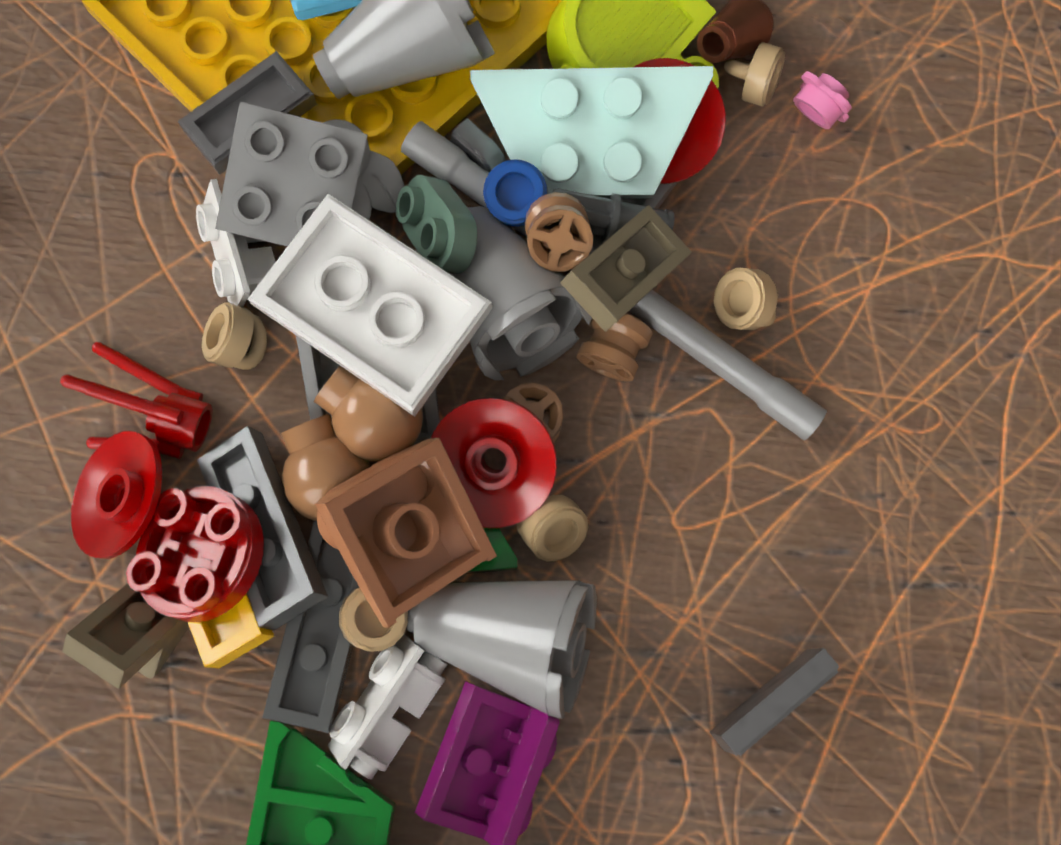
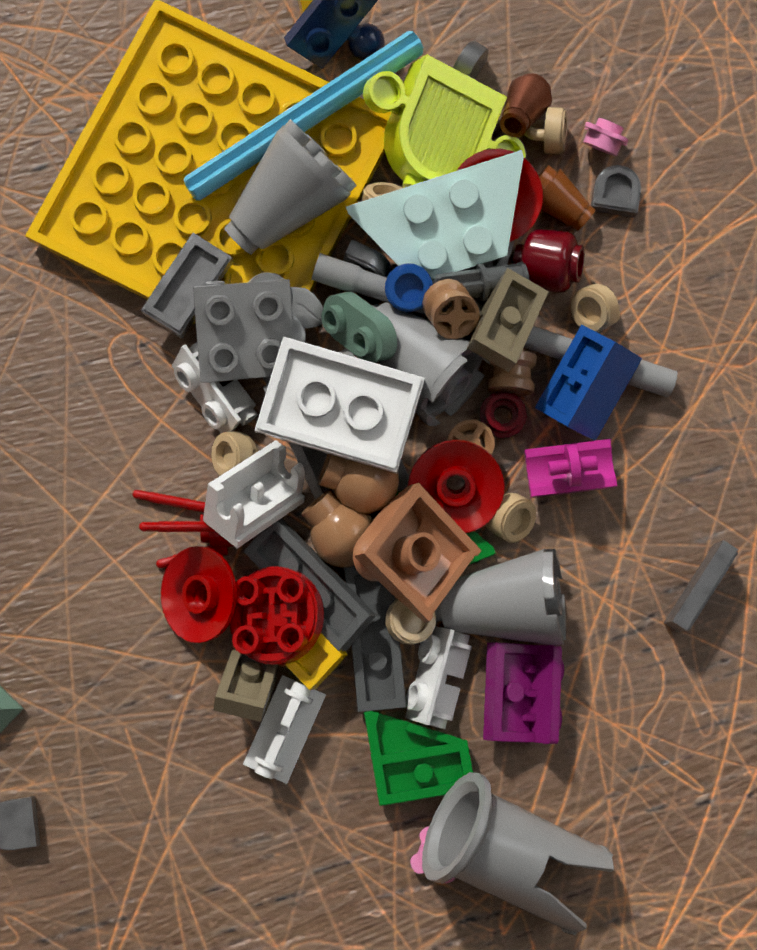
camera: 15 degrees left, 5 degrees up
(159, 712) = (284, 730): none -> white hinge
(226, 387) = (253, 495): none -> white hinge
(592, 377) = (513, 405): none -> dark red plate
(649, 488) = (570, 468): none -> dark pink hips
(709, 385) = (588, 382): none -> blue hinge
(711, 222) = (551, 259): none -> dark red head
(746, 157) = (563, 199): none -> dark orange cone
(816, 172) = (617, 191): none -> flat silver tile

